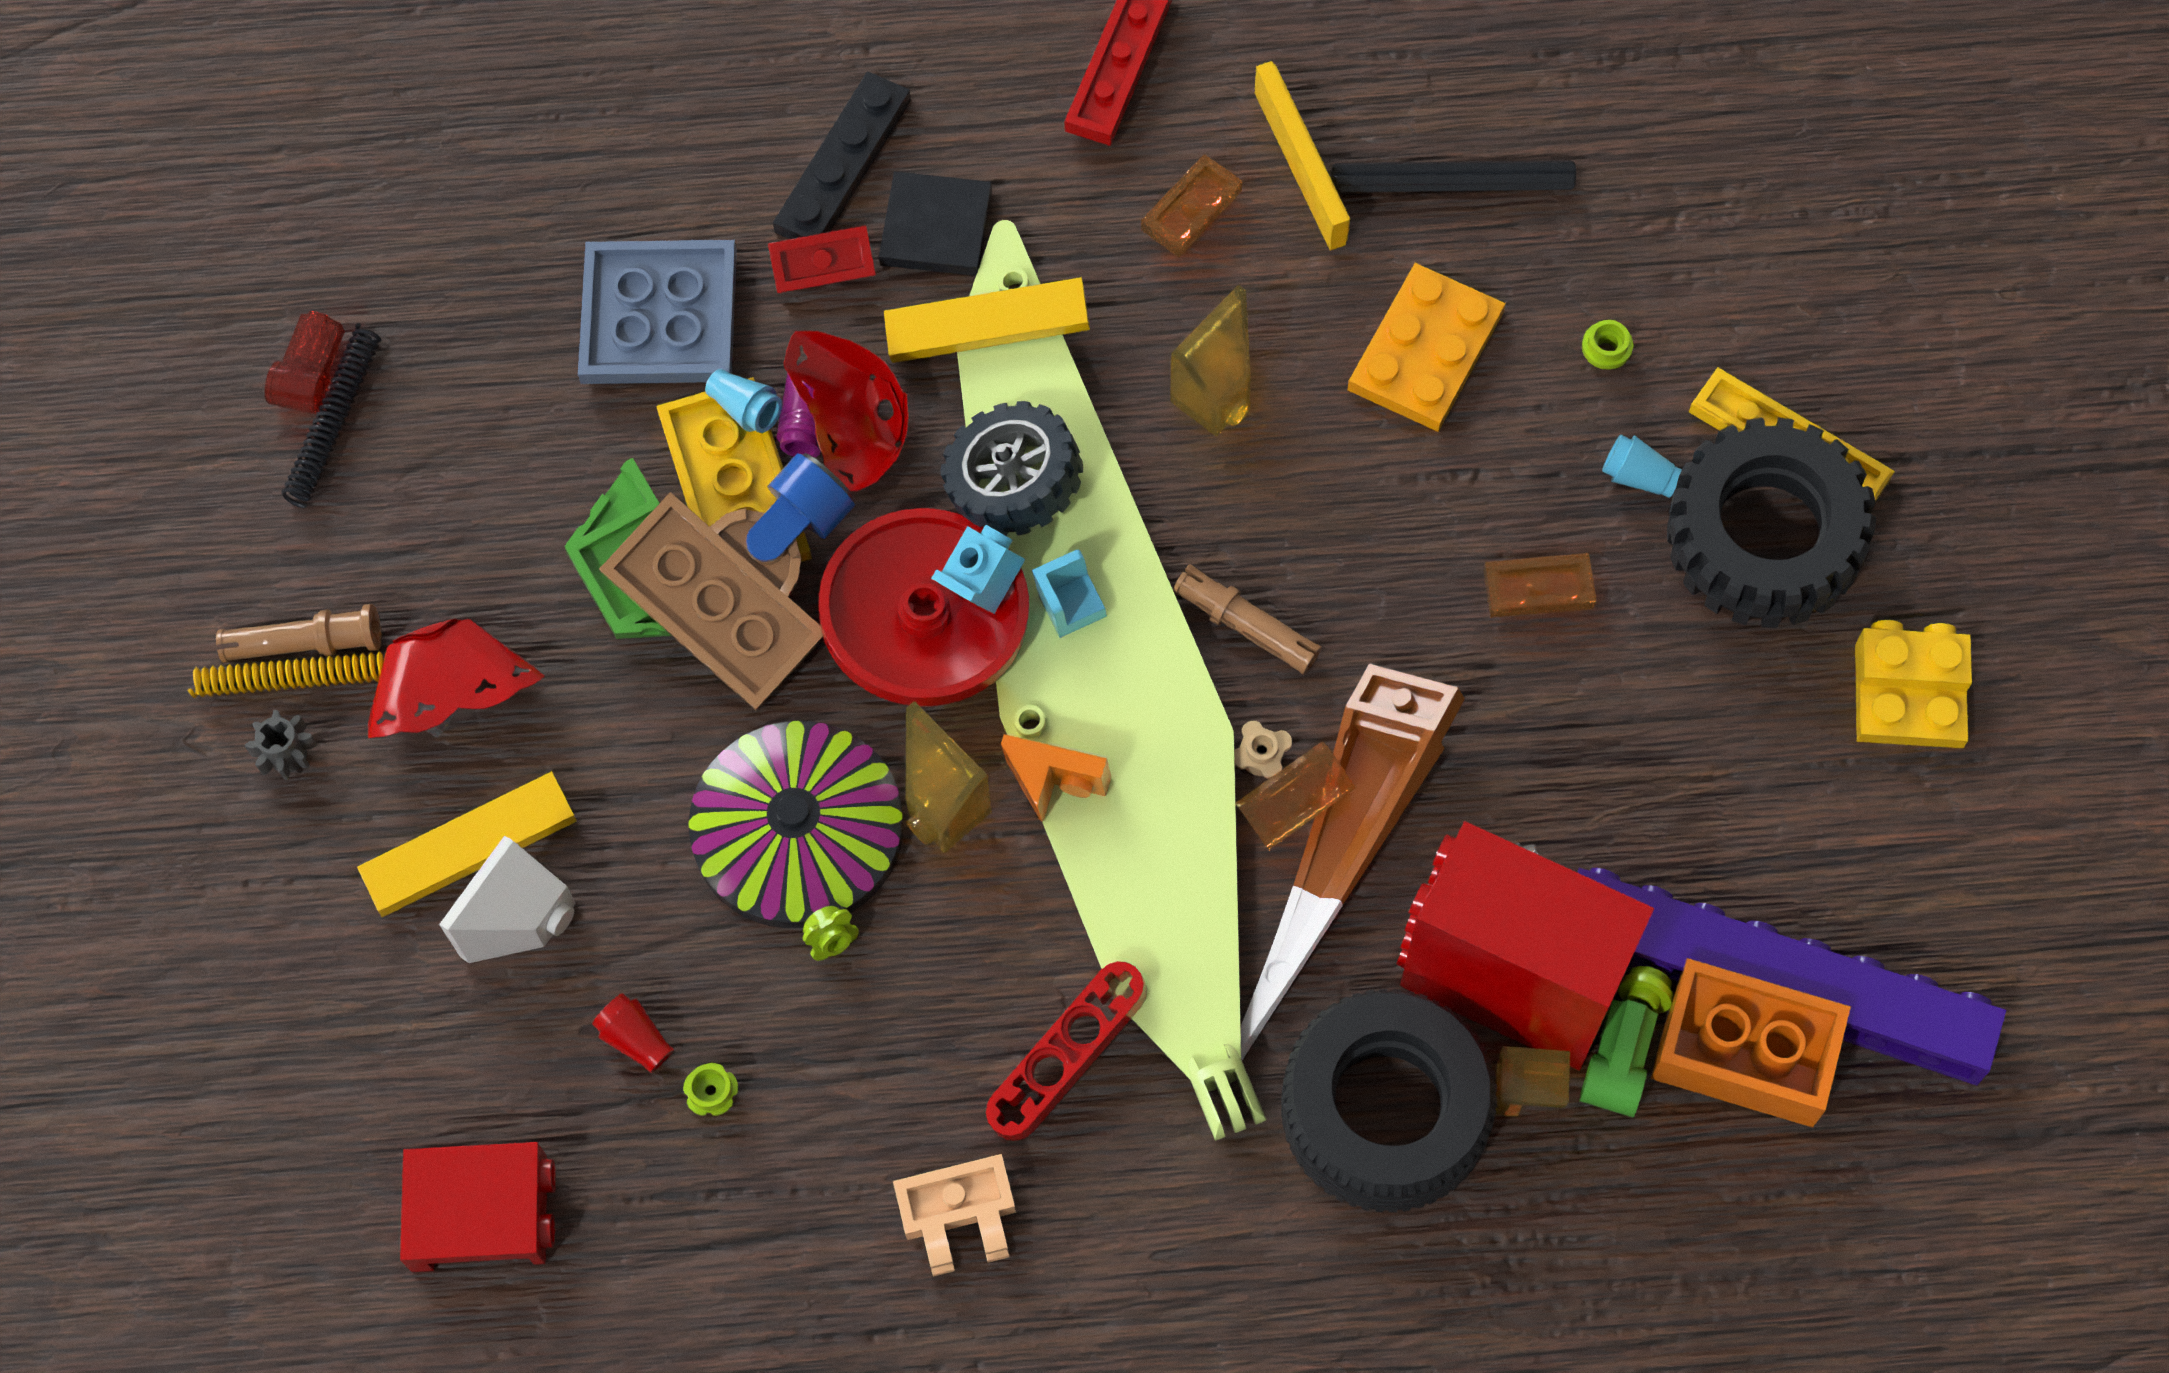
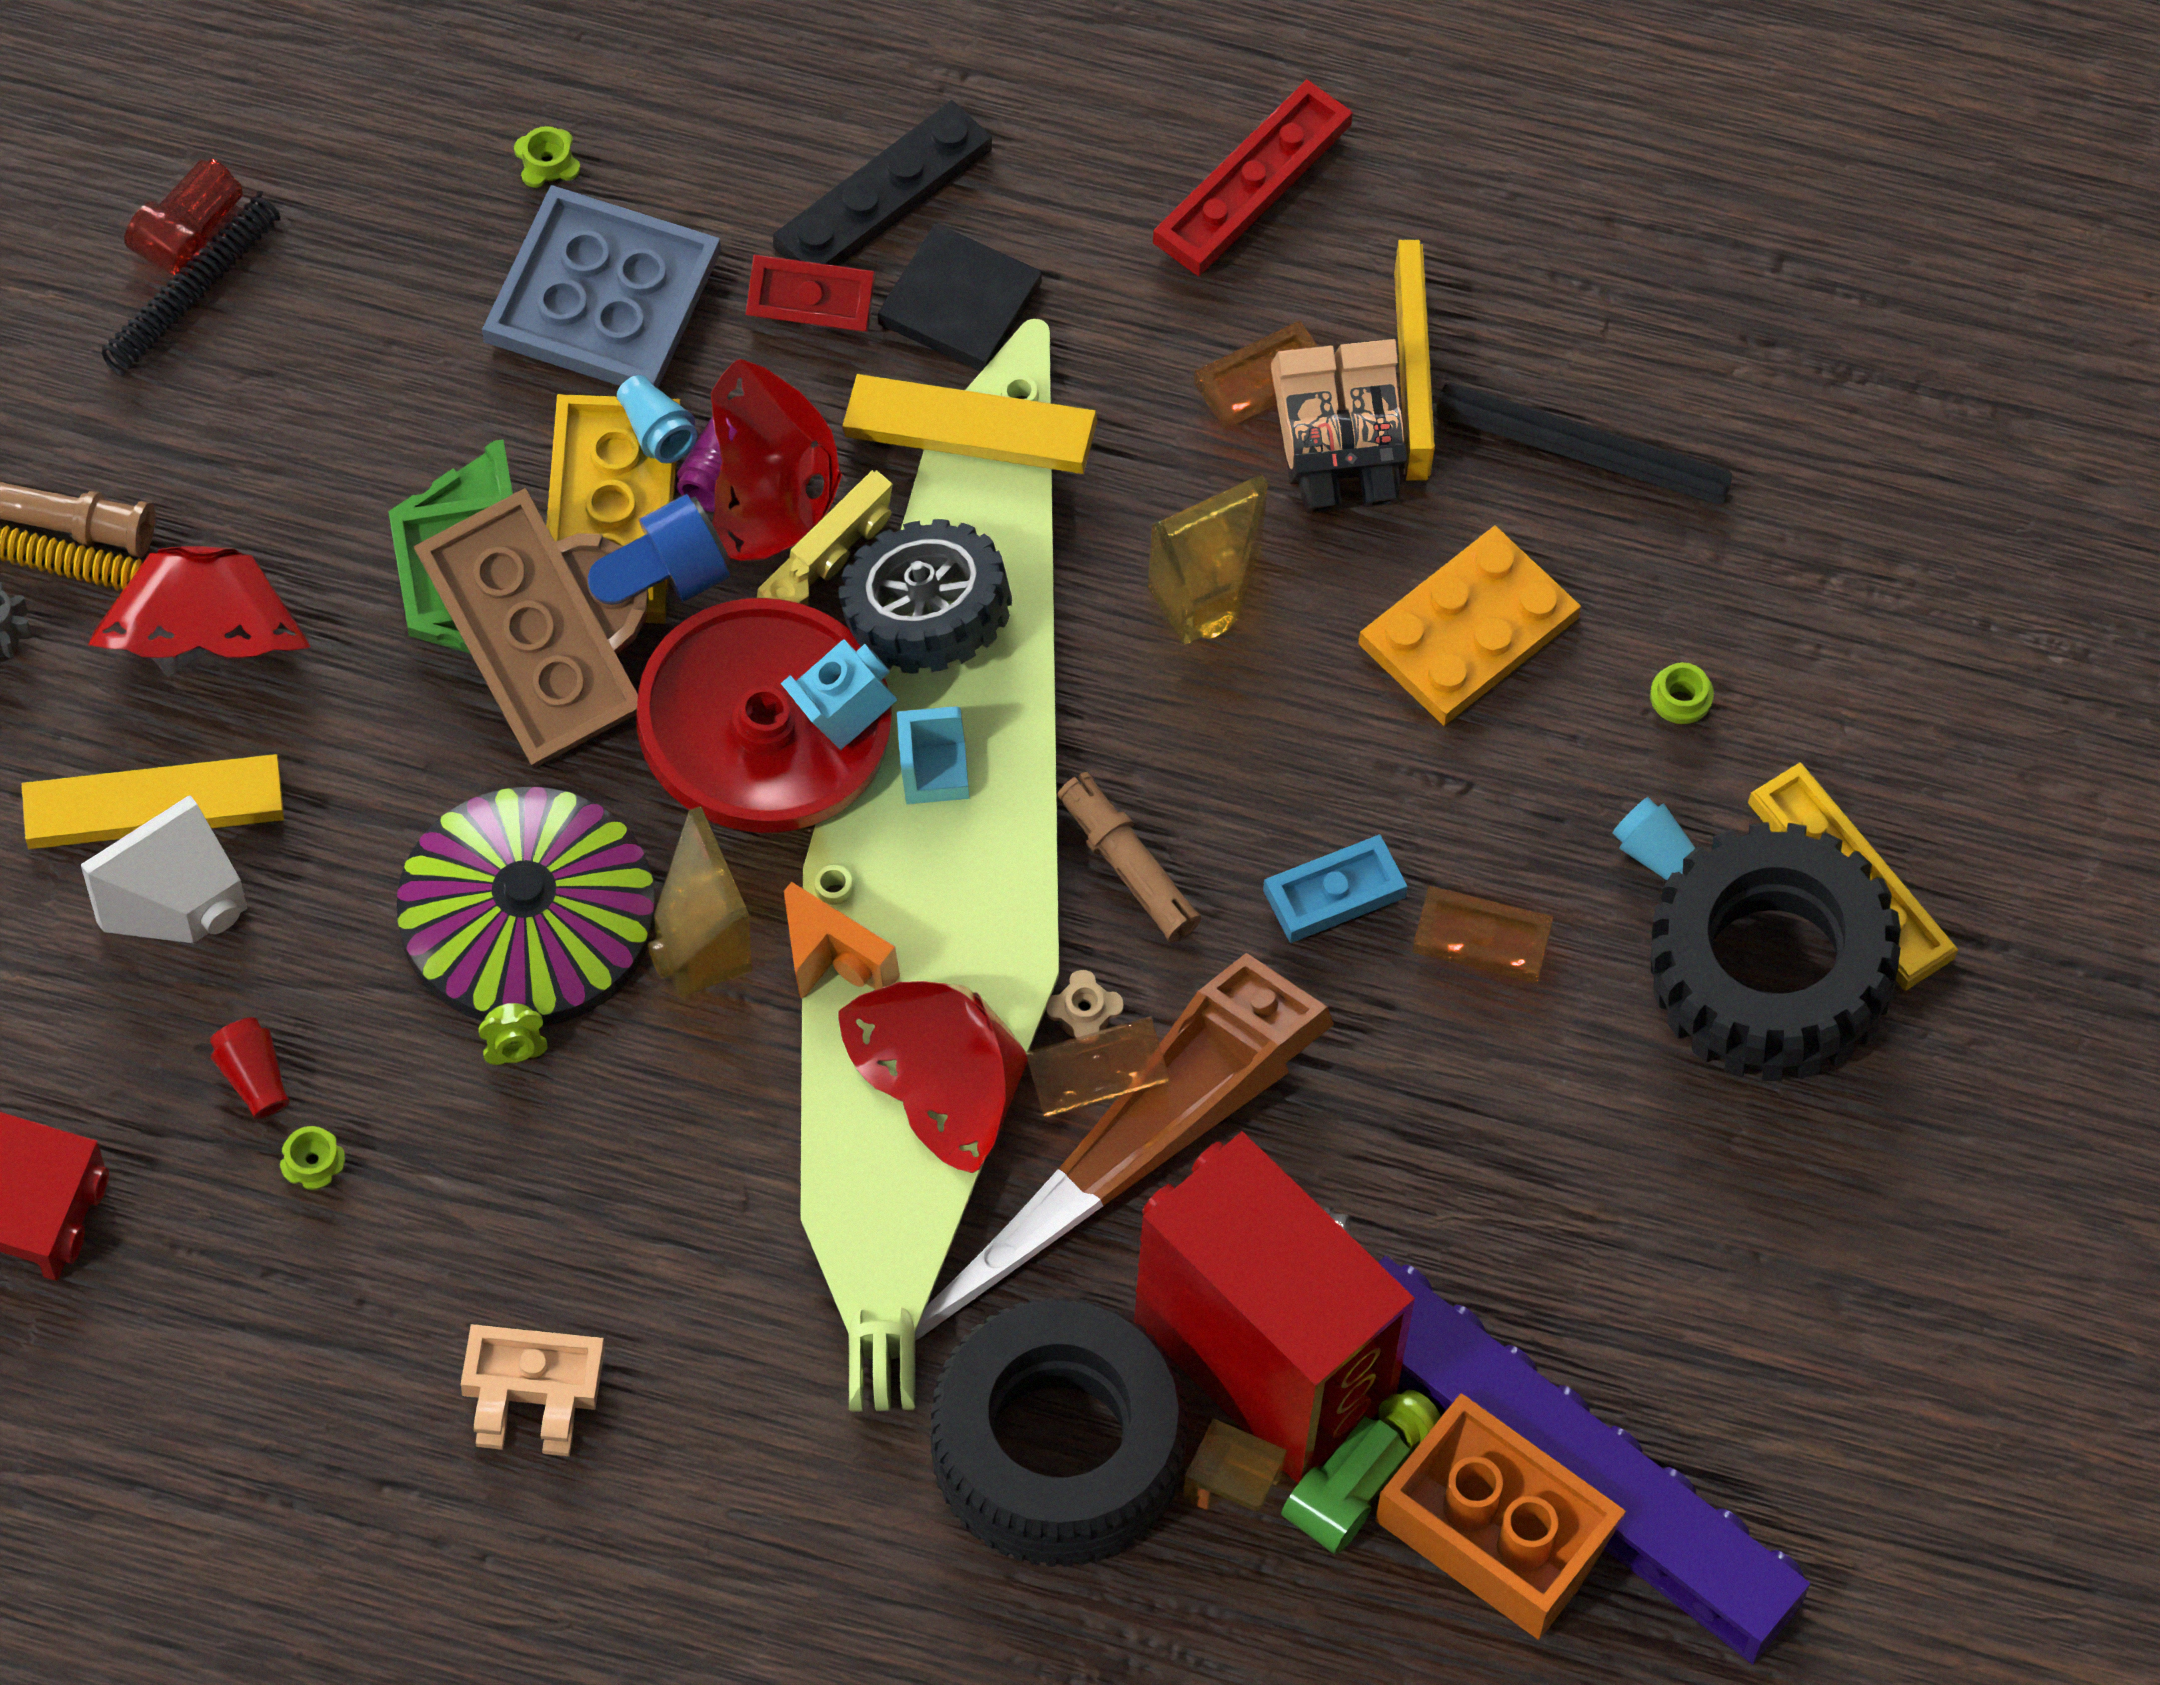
camera: 15 degrees right, 5 degrees down
(571, 208) = (542, 143): none -> lime plate
(914, 457) = (827, 544): none -> light yellow hinge
(1059, 1045) = (717, 1244): red beam -> none
(1180, 832) = (949, 1061): none -> red piece
(1270, 221) = (1343, 441): none -> hips
(1413, 588) = (1335, 888): none -> dark azure plate
(1912, 685) = (1871, 1195): yellow plate -> none

